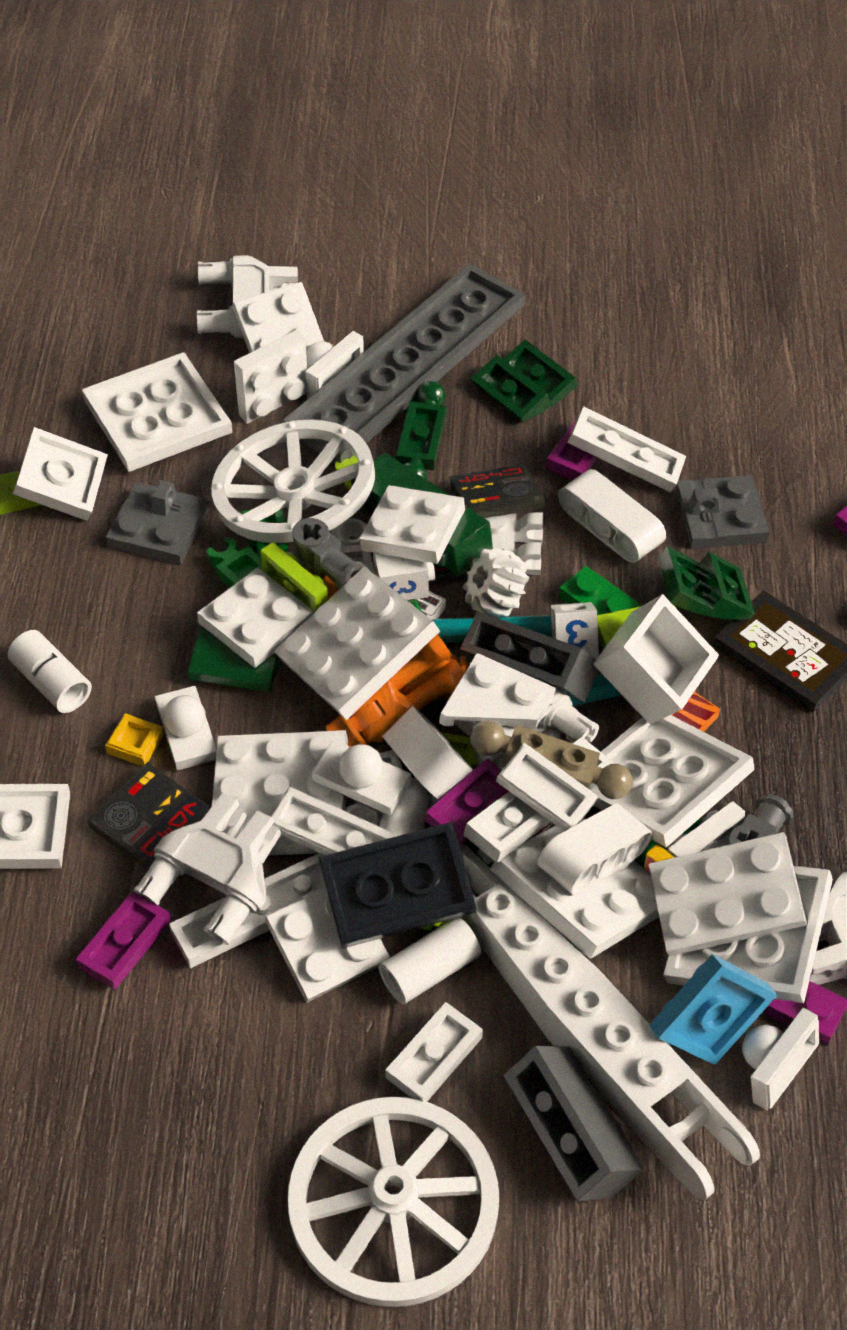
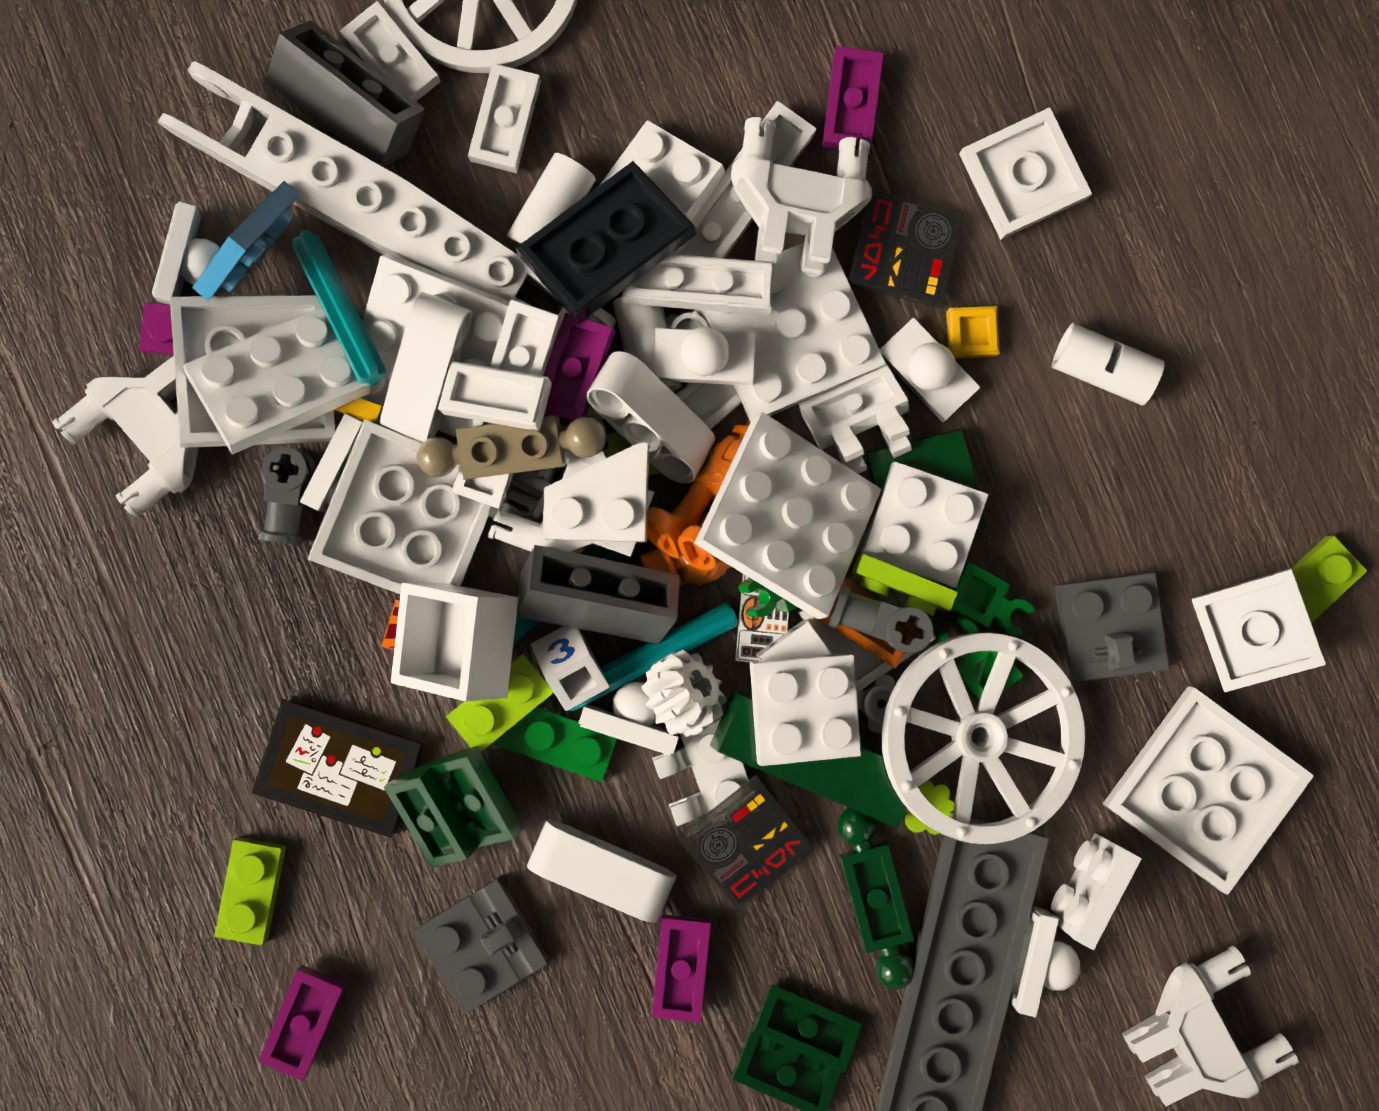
camera: 155 degrees right, 35 degrees up
(260, 715) = (856, 407): none -> white plate
(276, 315) = (1134, 990): white plate -> none
(515, 1154) = (390, 52): none -> white plate
(546, 587) = (630, 720): none -> white tile
(626, 449) = (620, 975): white plate -> none
(651, 931) = (339, 309): none -> teal axle

